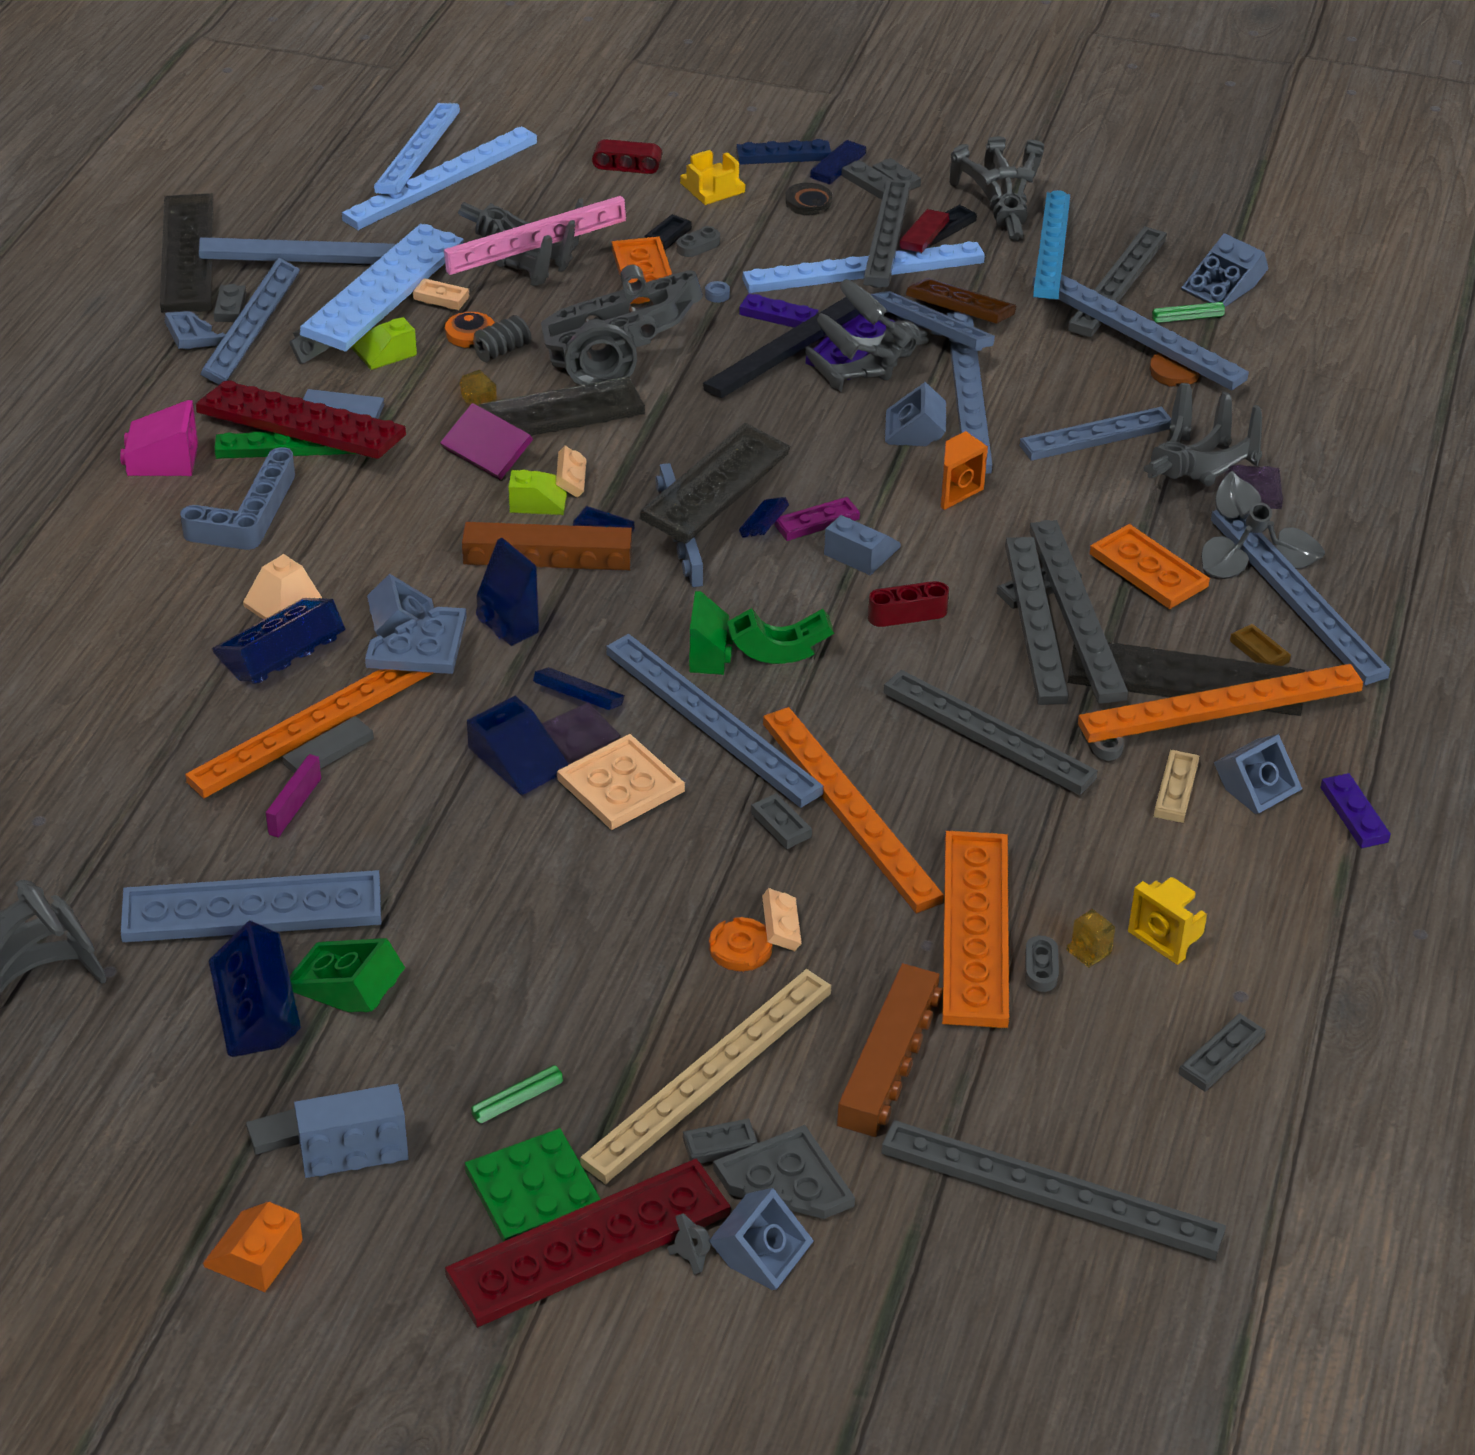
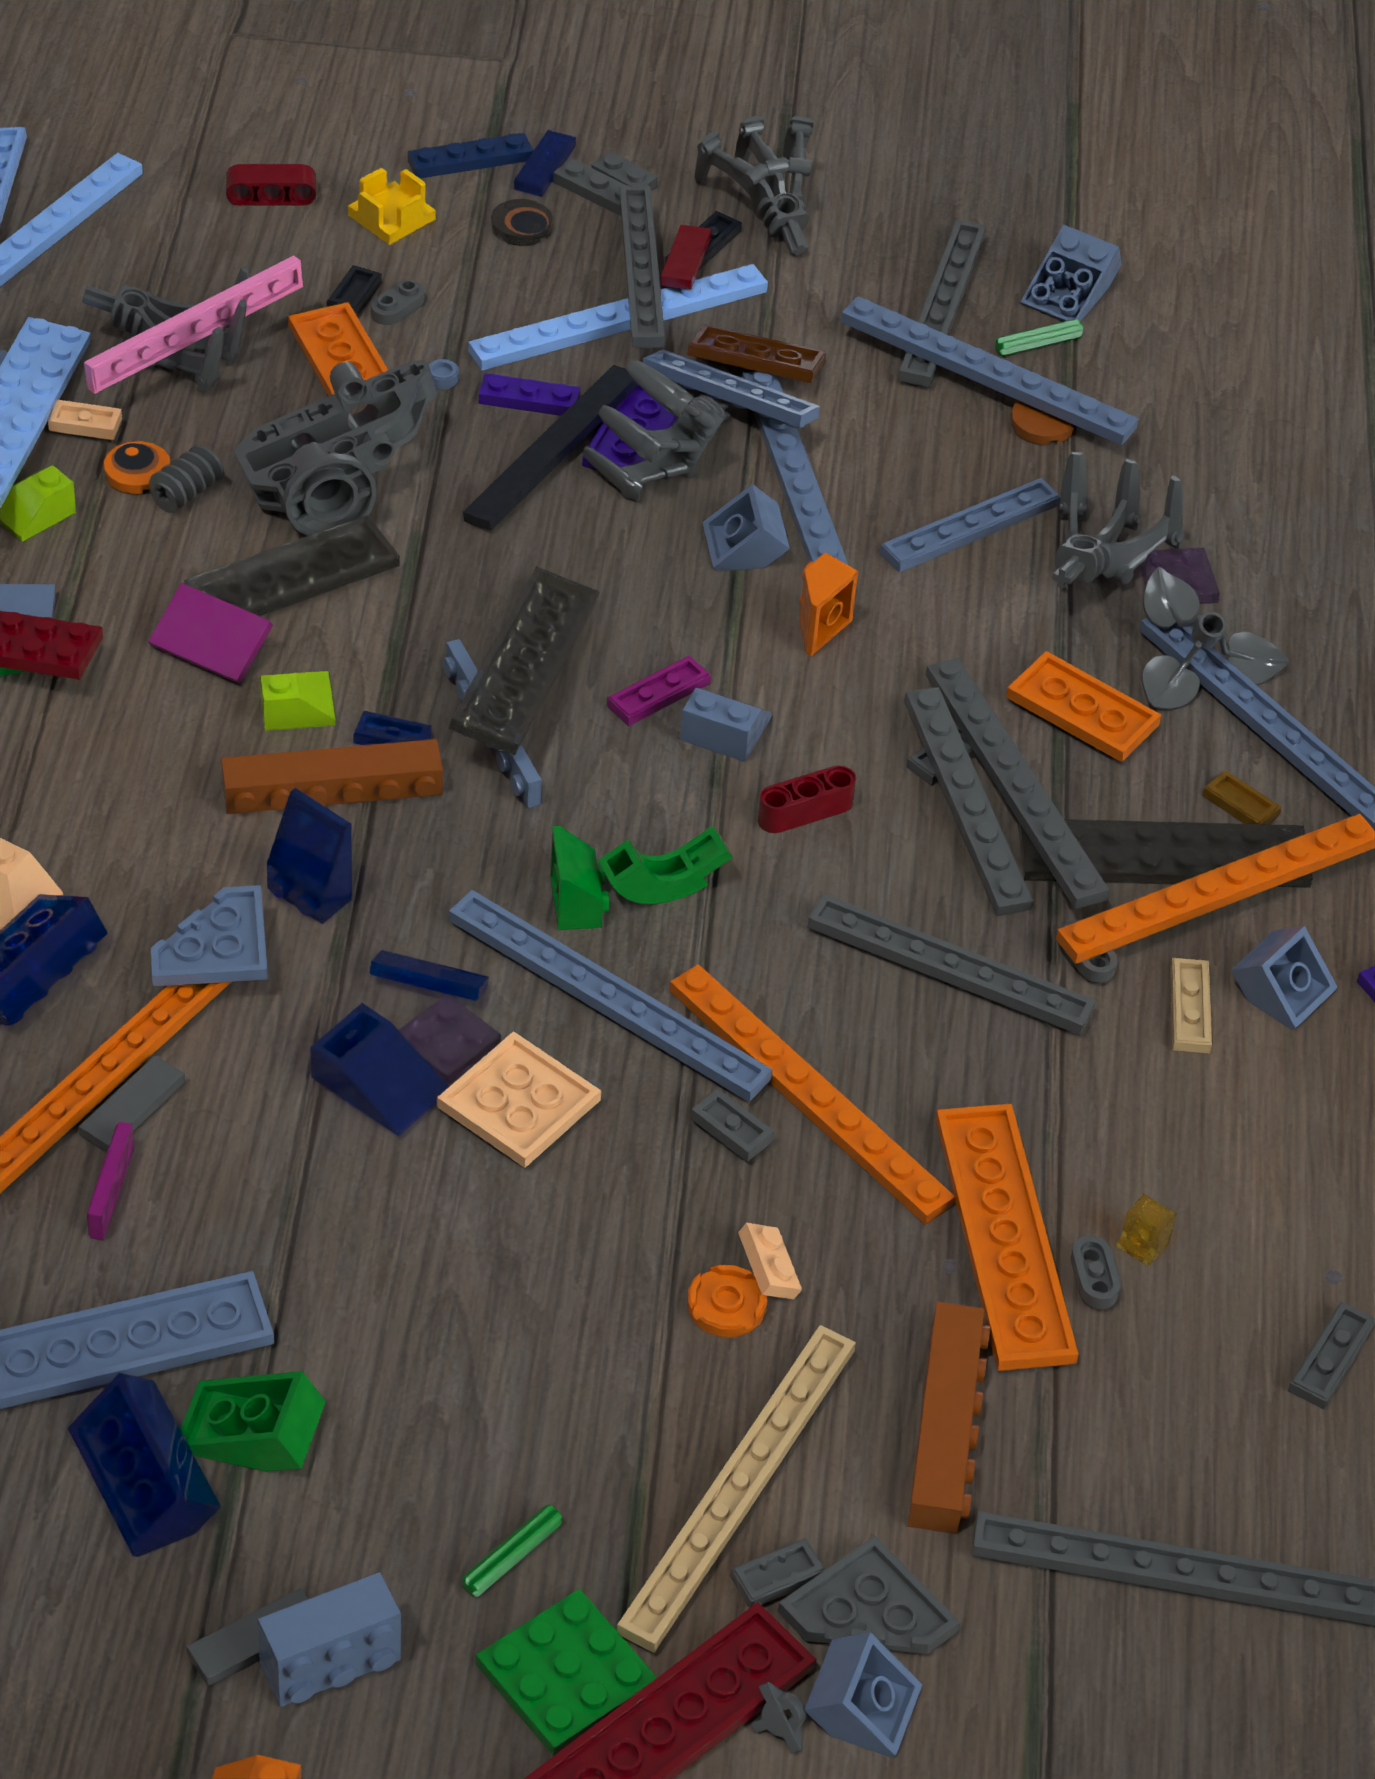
camera: 15 degrees left, 5 degrees up
(395, 603) = (166, 893): sand blue slope -> none
(477, 388) = (176, 558): clear yellow brick -> none
(571, 471) = (331, 663): light nougat plate -> none
(764, 517) = (598, 698): clear blue tile -> none
(1052, 245) = (853, 263): dark azure plate -> none
(1162, 921) = (1227, 1194): yellow panel -> none

